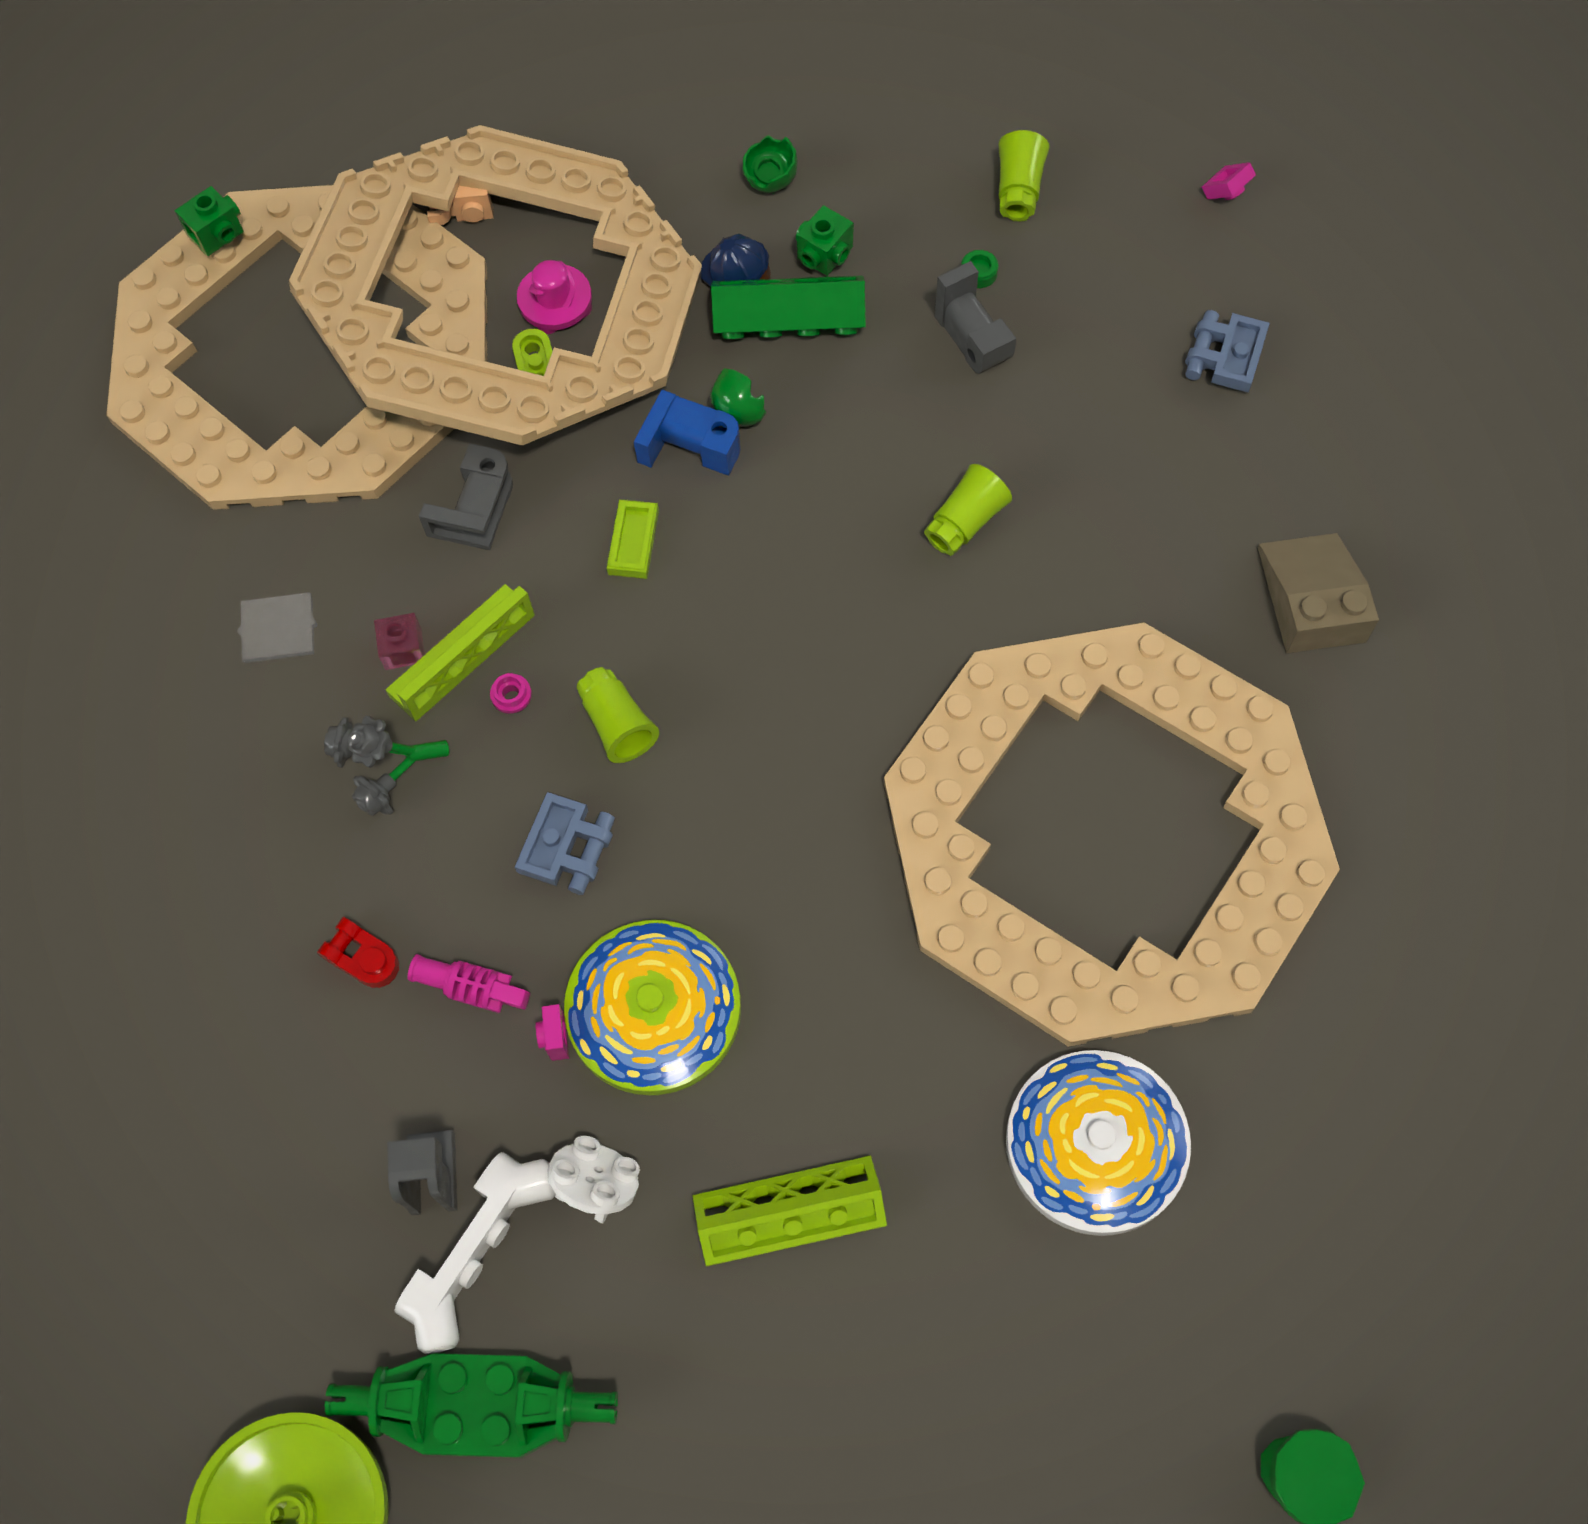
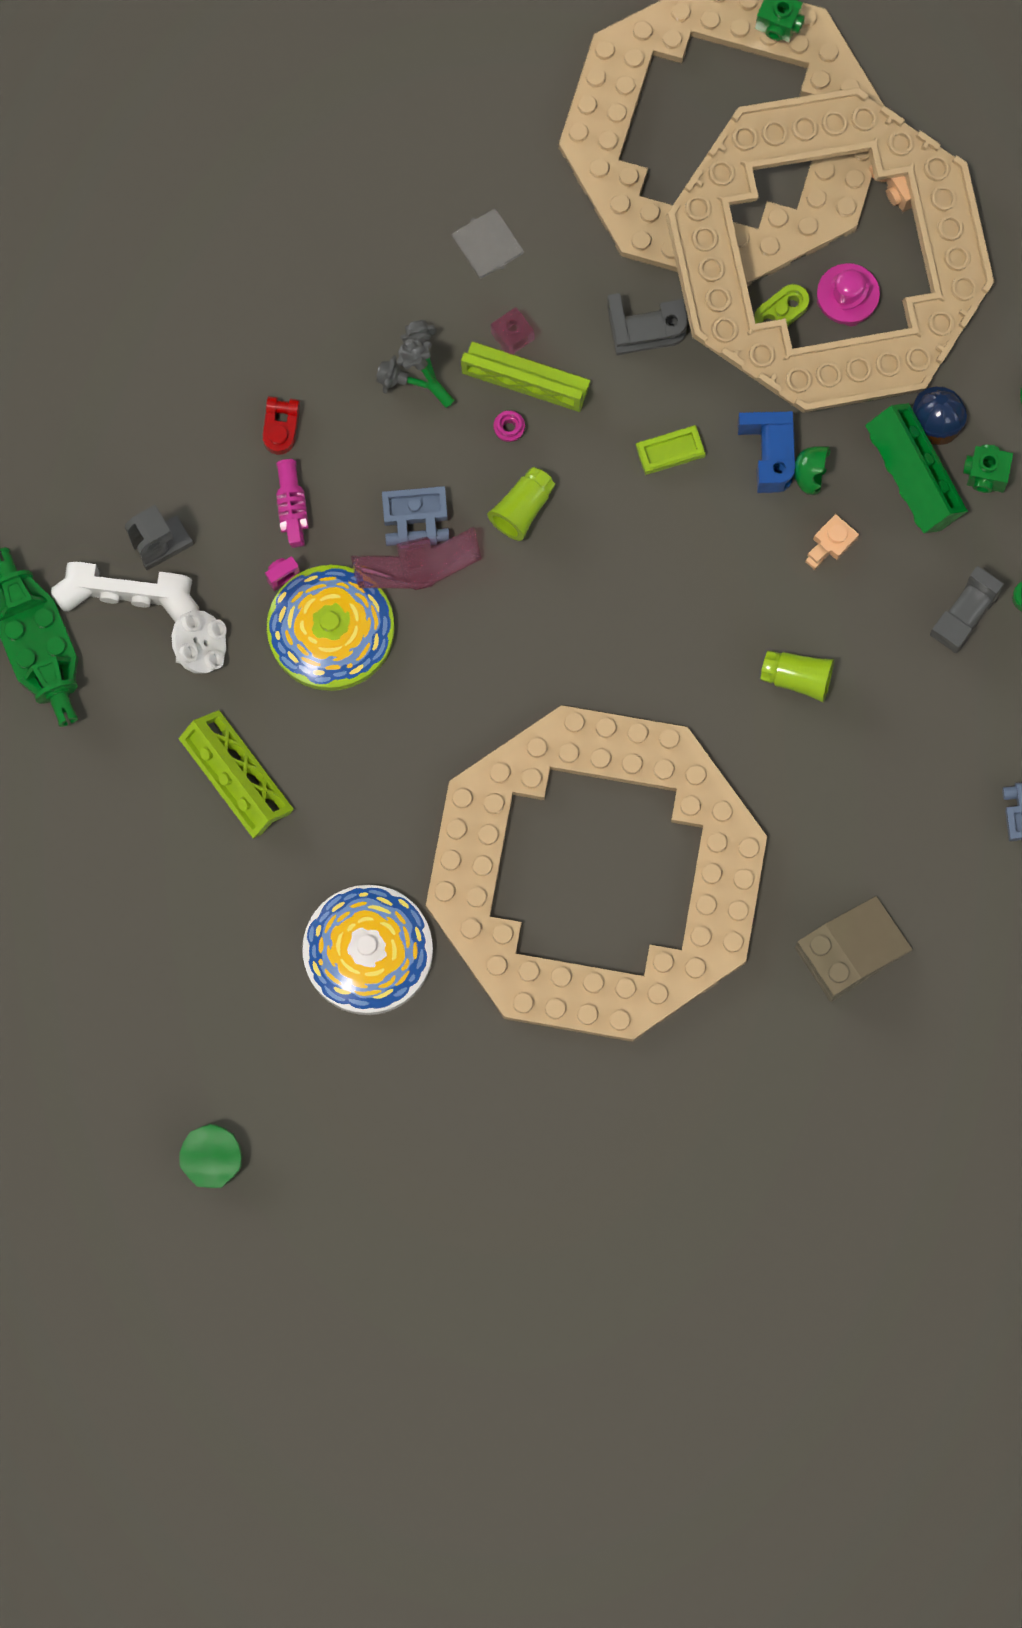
camera: 65 degrees right, 10 degrees up
(626, 865) = (417, 563): none -> clear pink plate
(825, 421) = (832, 539): none -> light nougat plate

